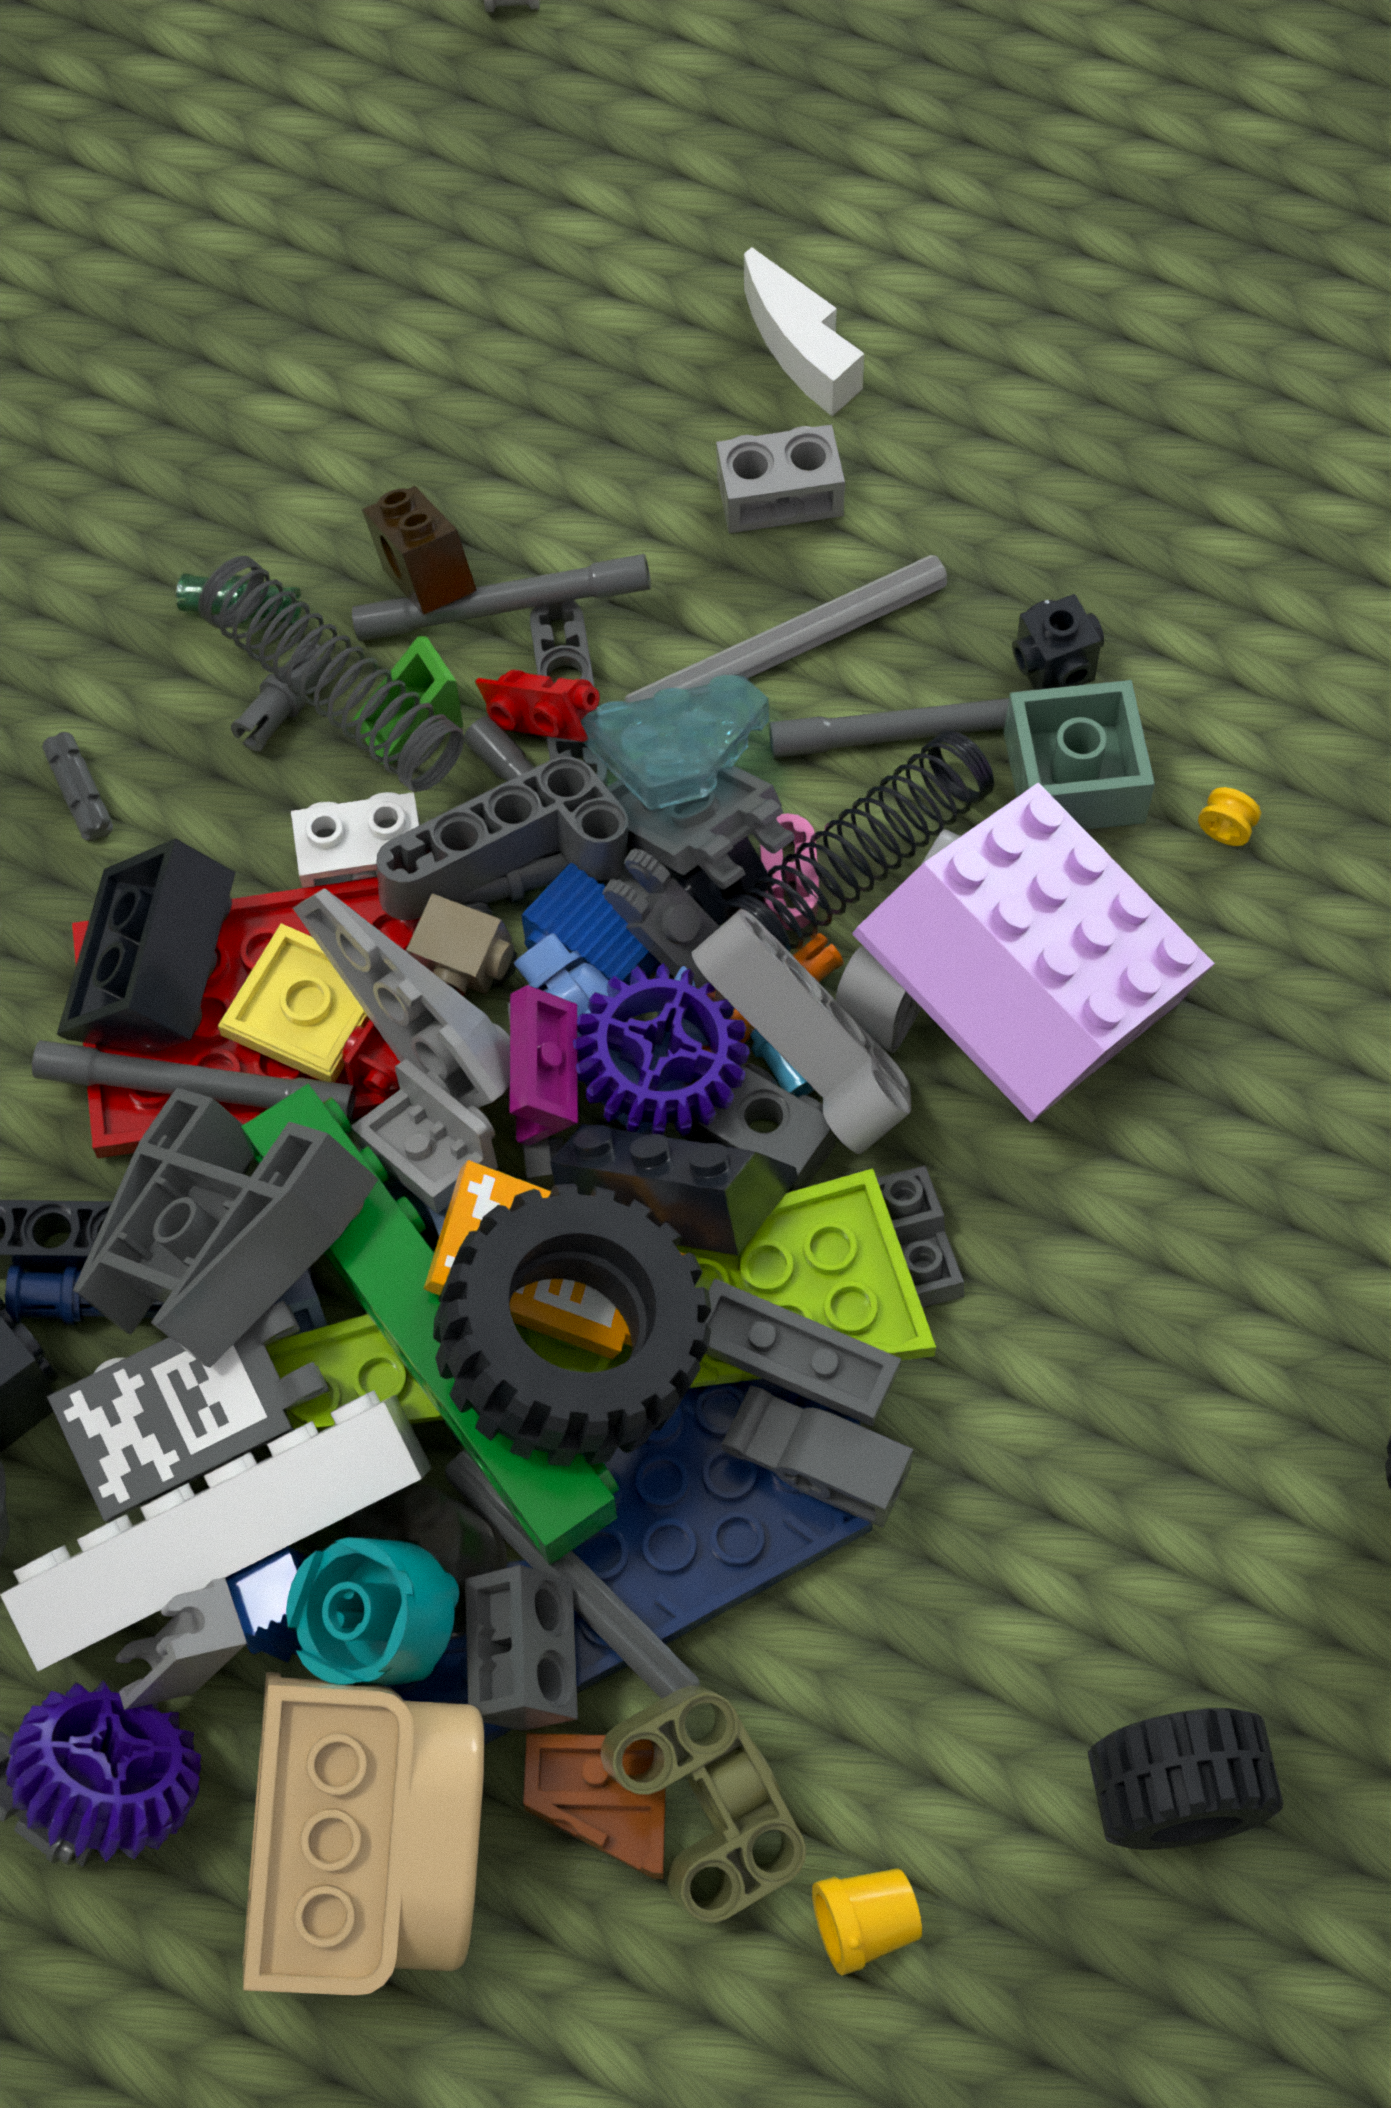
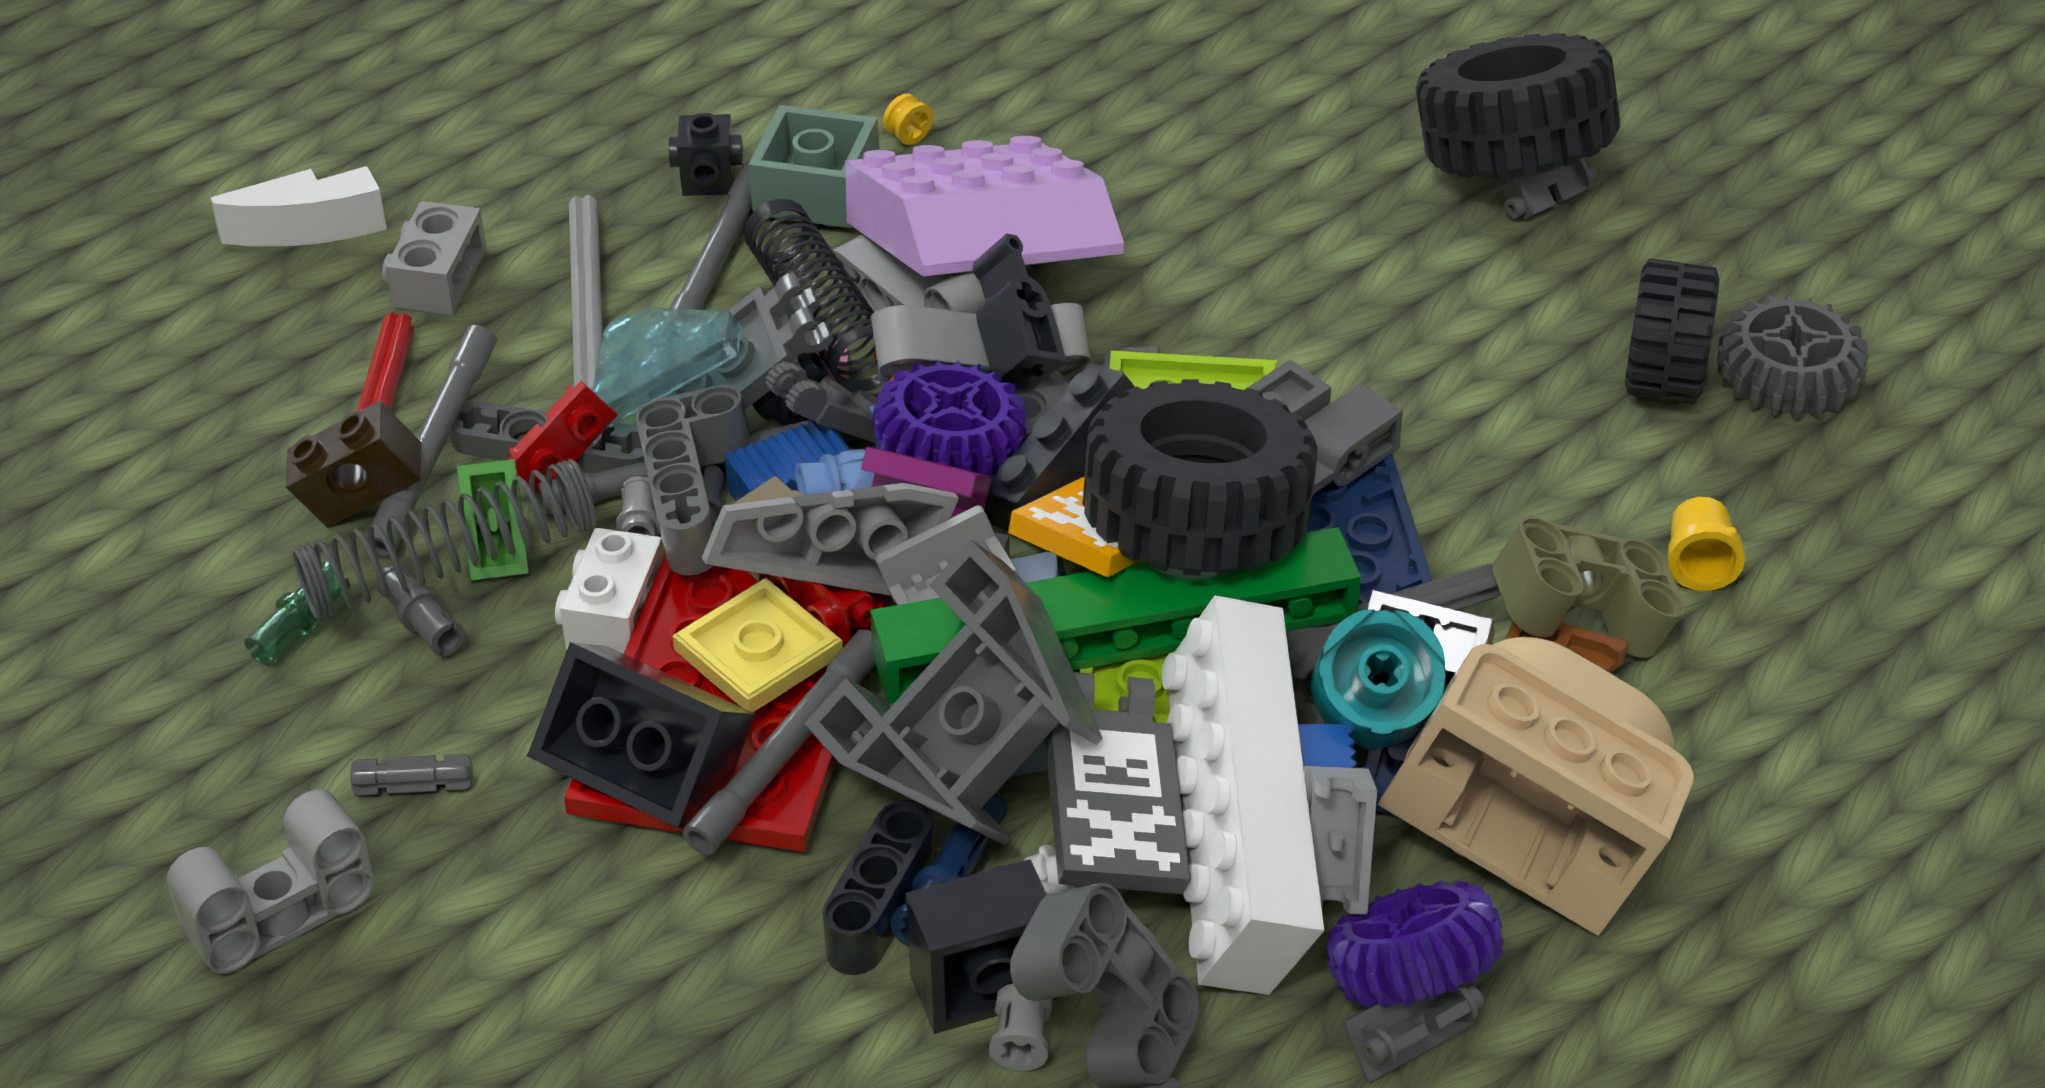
camera: 70 degrees left, 20 degrees down
(602, 514) = (387, 361): none -> red axle
(808, 1073) = (1016, 317): none -> black piece
(1266, 1972) = (1792, 356): none -> dark grey gear

